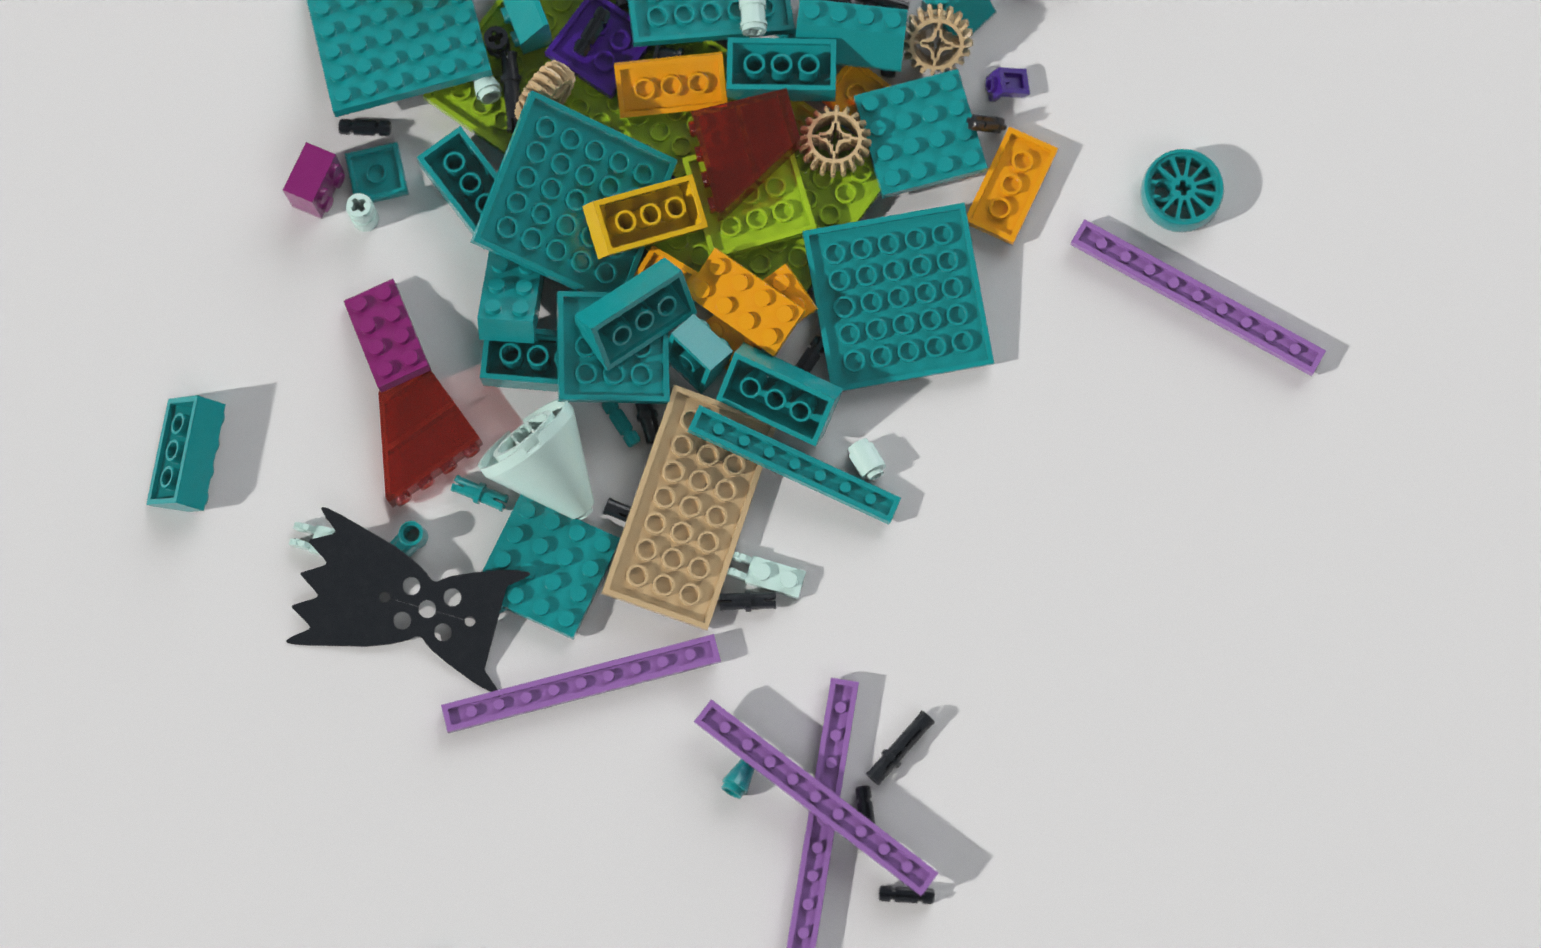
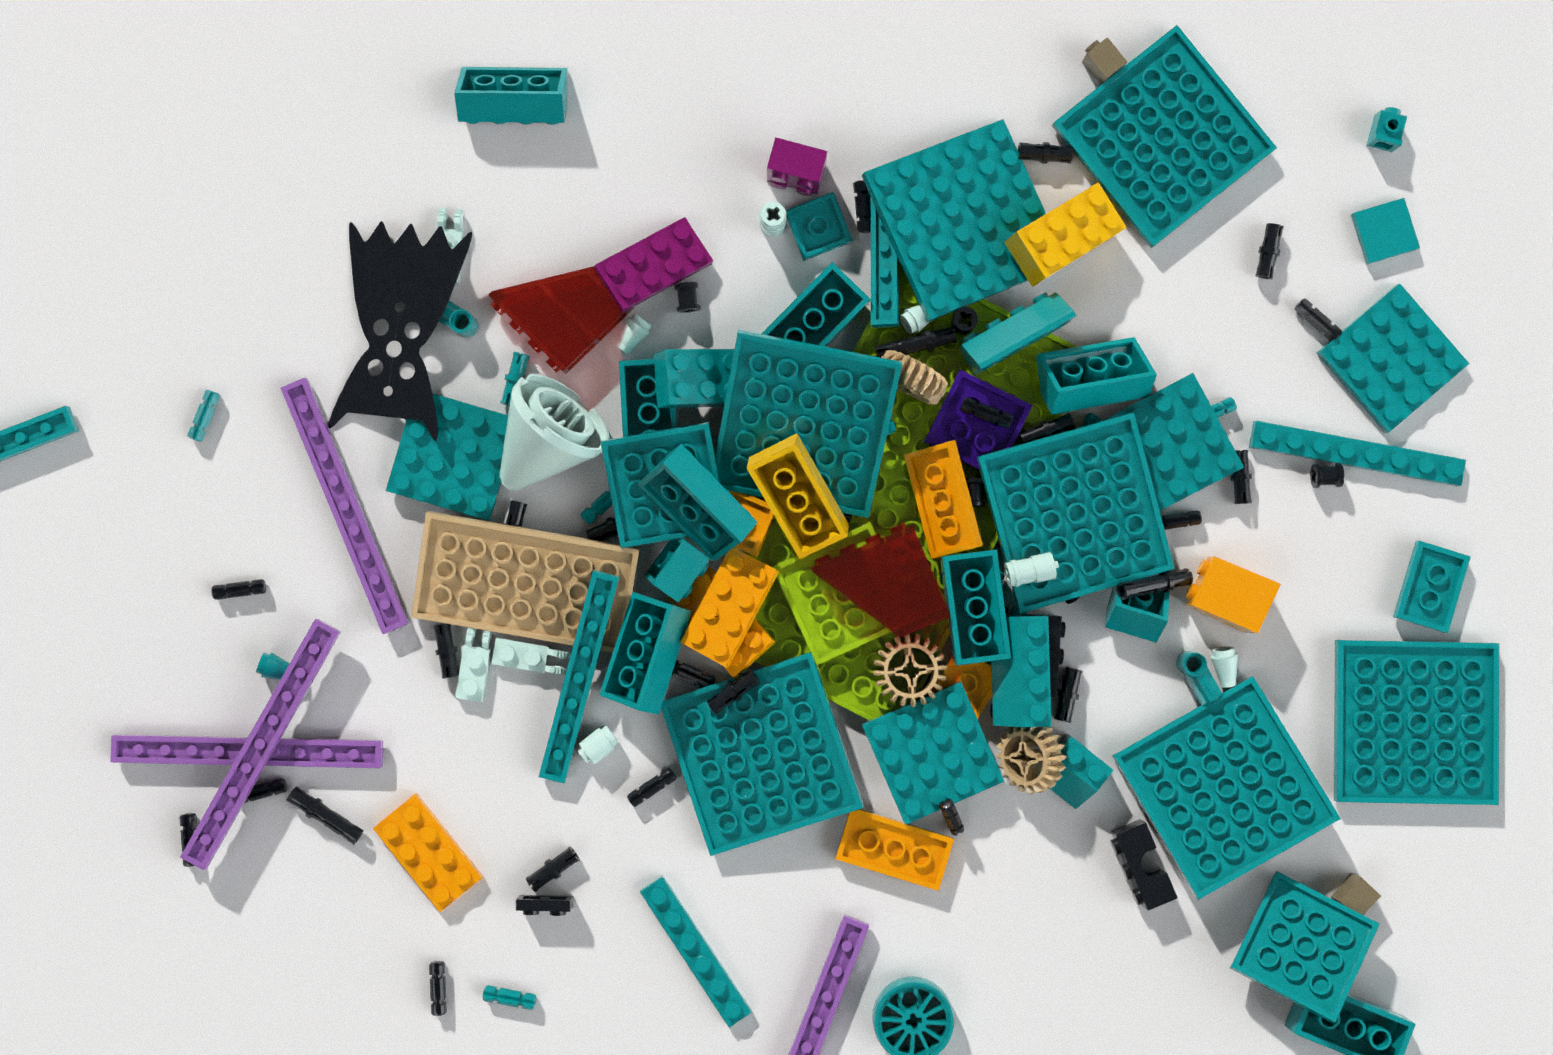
camera: 75 degrees right, 10 degrees up
(425, 309) = (687, 297): none -> black bush
(432, 112) = (883, 276): none -> teal plate
(452, 367) = (633, 333): none -> light aqua cone
(462, 819) = (203, 415): none -> teal axle
(651, 807) = (238, 589): none -> black axle
(765, 520) = (526, 656): none -> light aqua hinge
(831, 311) = (733, 691): none -> black pin
(917, 414) = (651, 787): none -> black axle
(953, 648) = (428, 852): none -> light orange plate
(987, 523) = (552, 869): none -> black pin
(1007, 83) = (999, 831): dark purple bracket -> none
(1023, 523) = (534, 903): none -> black plate
(1089, 393) = (696, 951): none -> teal plate
(1094, 656) = (437, 988): none -> black axle
(1112, 585) = (509, 997): none -> teal axle

